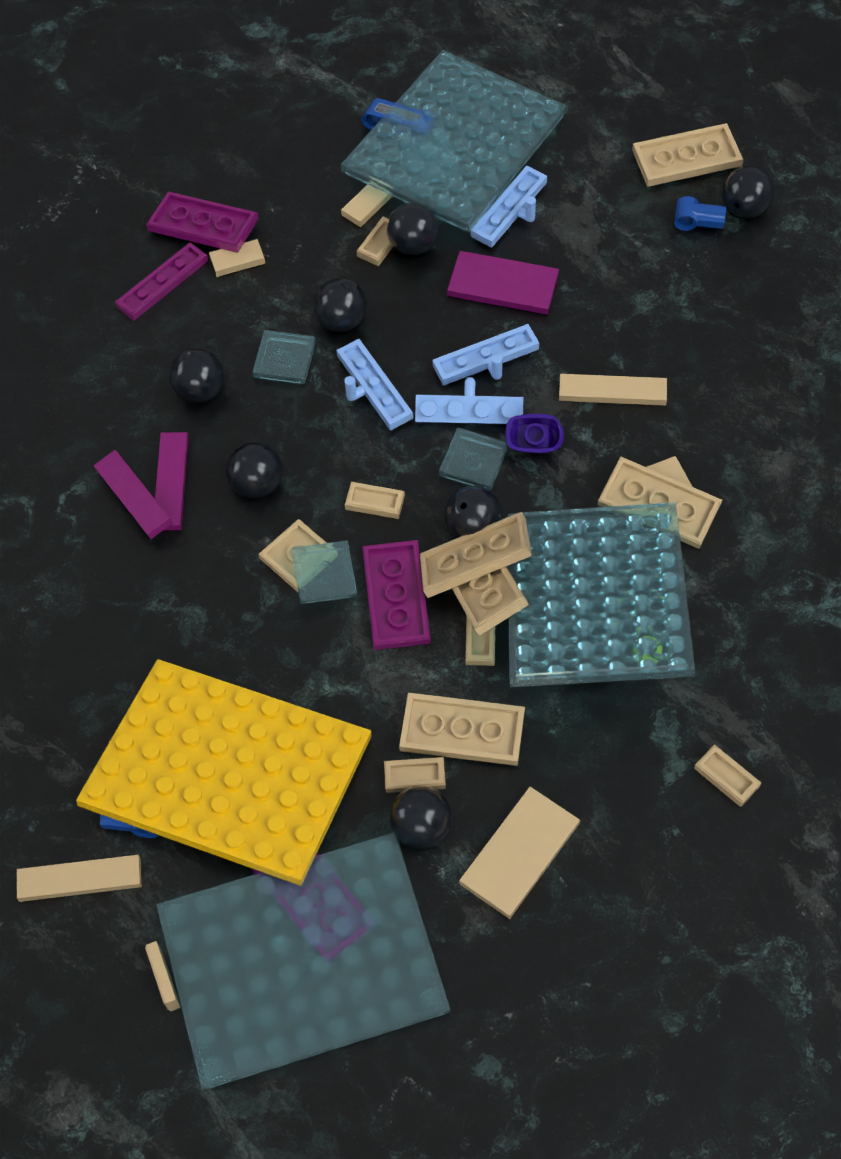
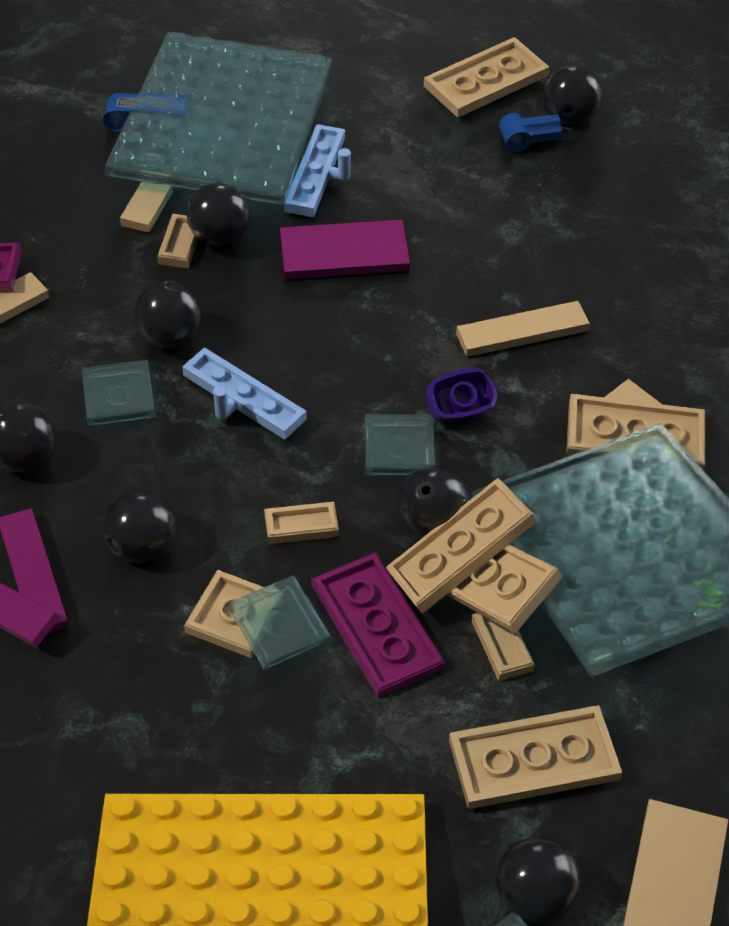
camera: 25 degrees left, 10 degrees down
(414, 772) = (498, 831): tan tile -> none
(467, 407) = (368, 389): light blue plate -> none
(486, 355) = (366, 325): light blue plate -> none

